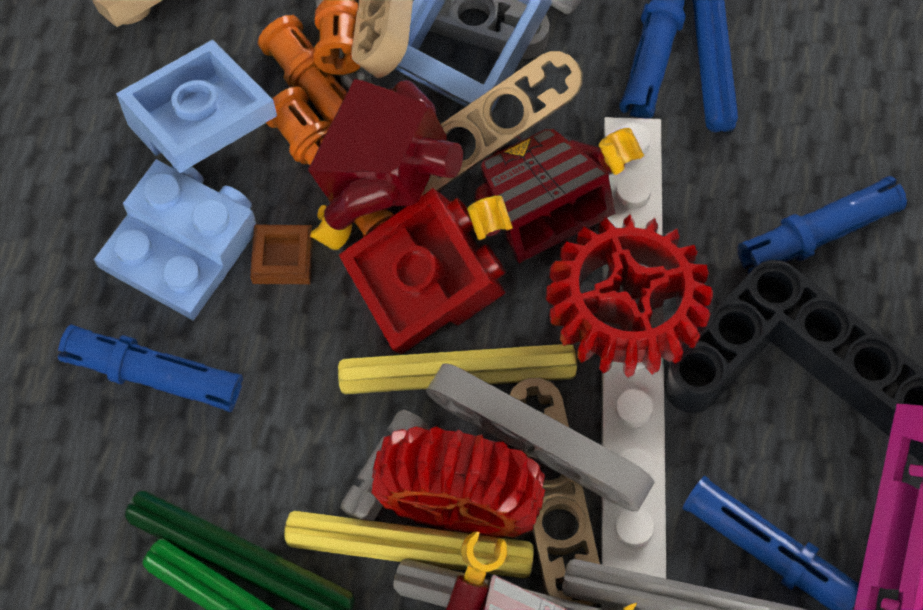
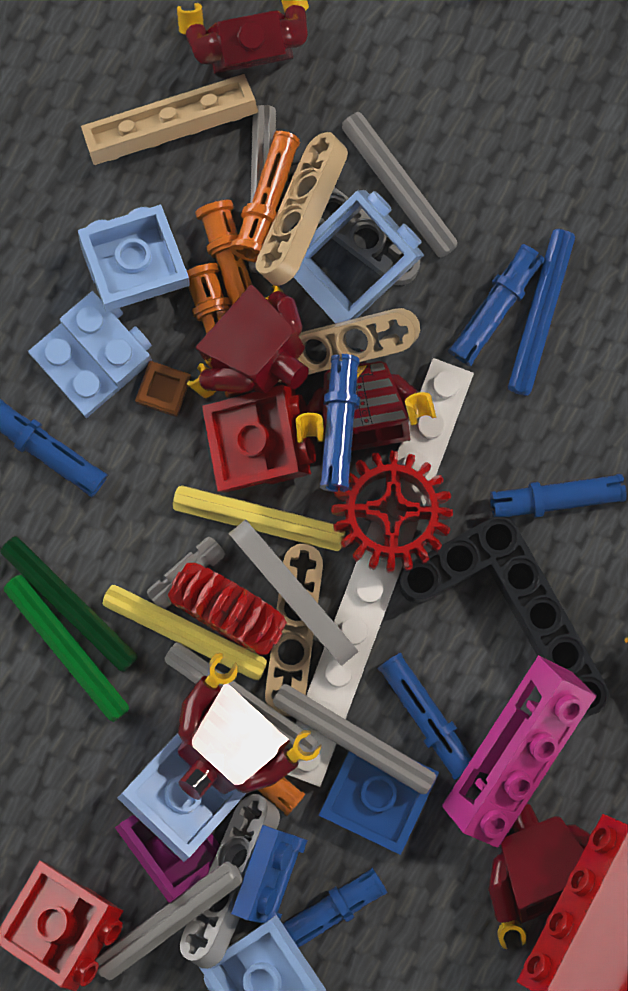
camera: 15 degrees right, 15 degrees up
(518, 179) = (340, 405): none -> blue pin

